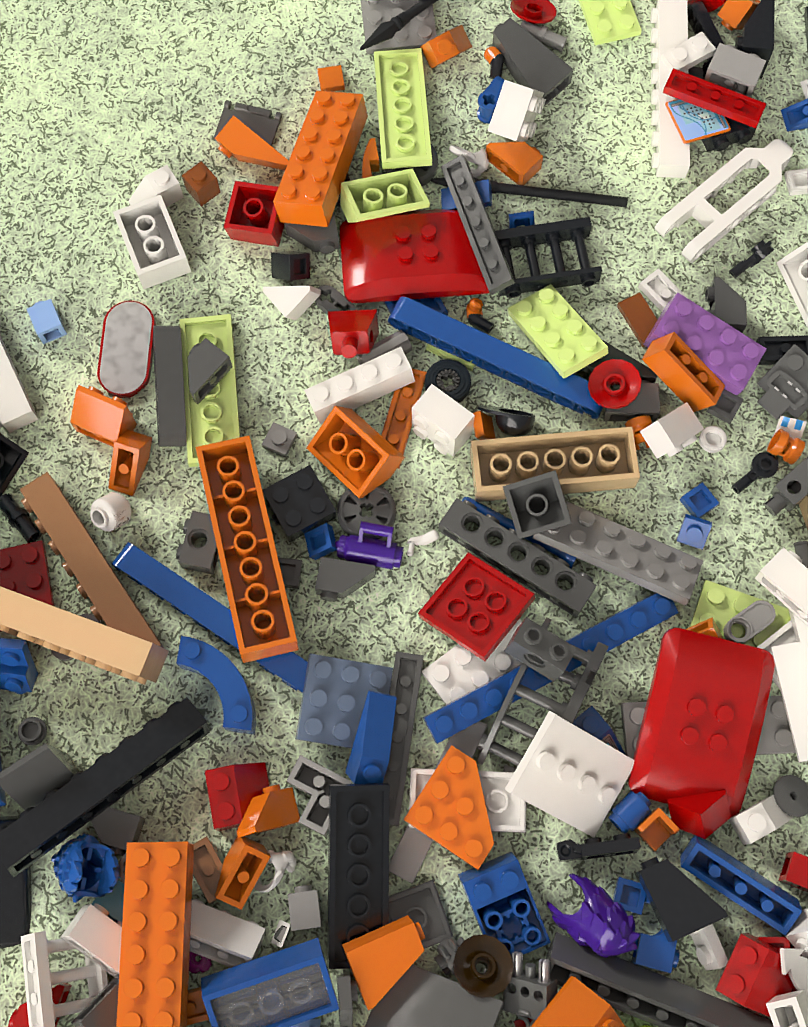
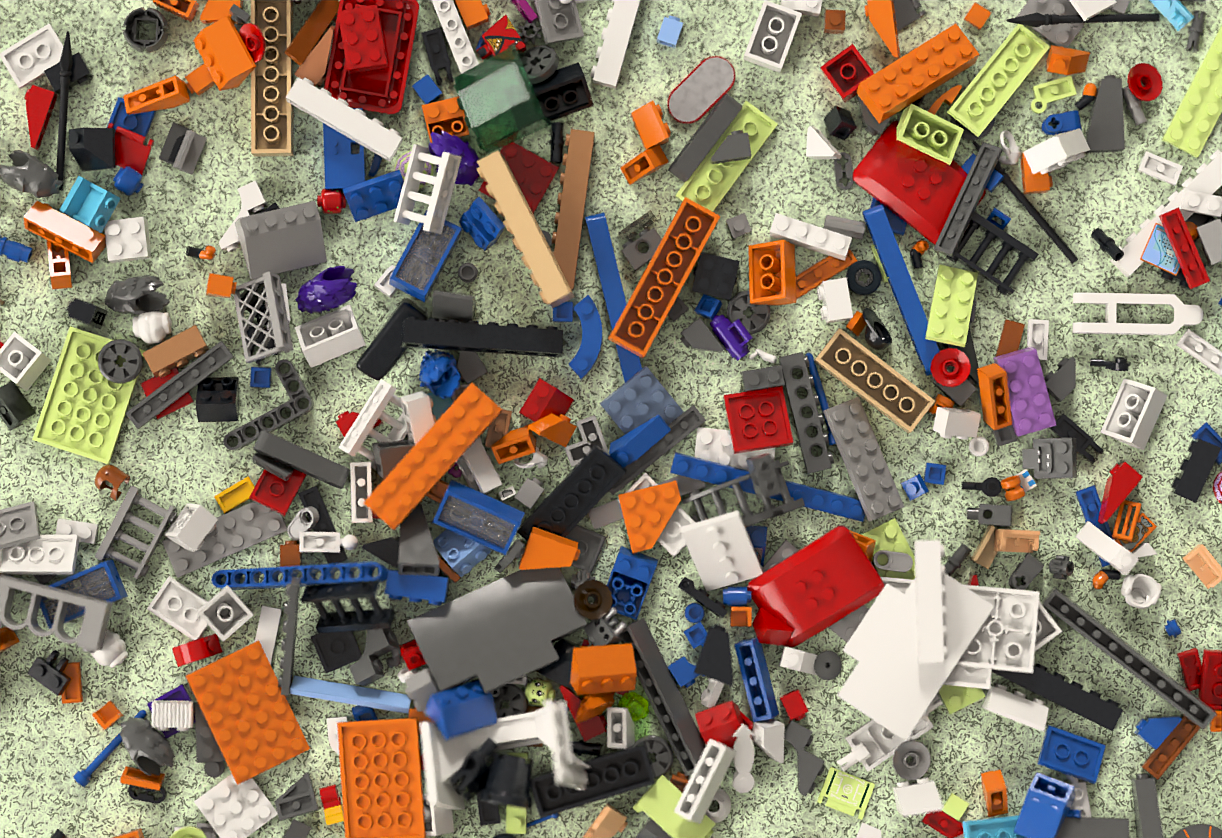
camera: 40 degrees right, 15 degrees up
(110, 511) = (609, 186): white head -> none
(172, 532) = (630, 231): none -> clear smoke plate
(172, 680) = (563, 312): none -> blue plate
(353, 331) = (835, 201): red torso -> none
(441, 560) = (763, 378): none -> dark grey brick
(461, 82) = (1052, 92): none -> yellowish green hinge
(537, 504) = (840, 397): dark grey slope -> none
(598, 922) = (668, 631): dark purple head -> none
(603, 873) = (694, 612): none -> blue tile
(619, 65) = (1160, 168): none -> white plate
(654, 155) = (1107, 244): none -> black pin

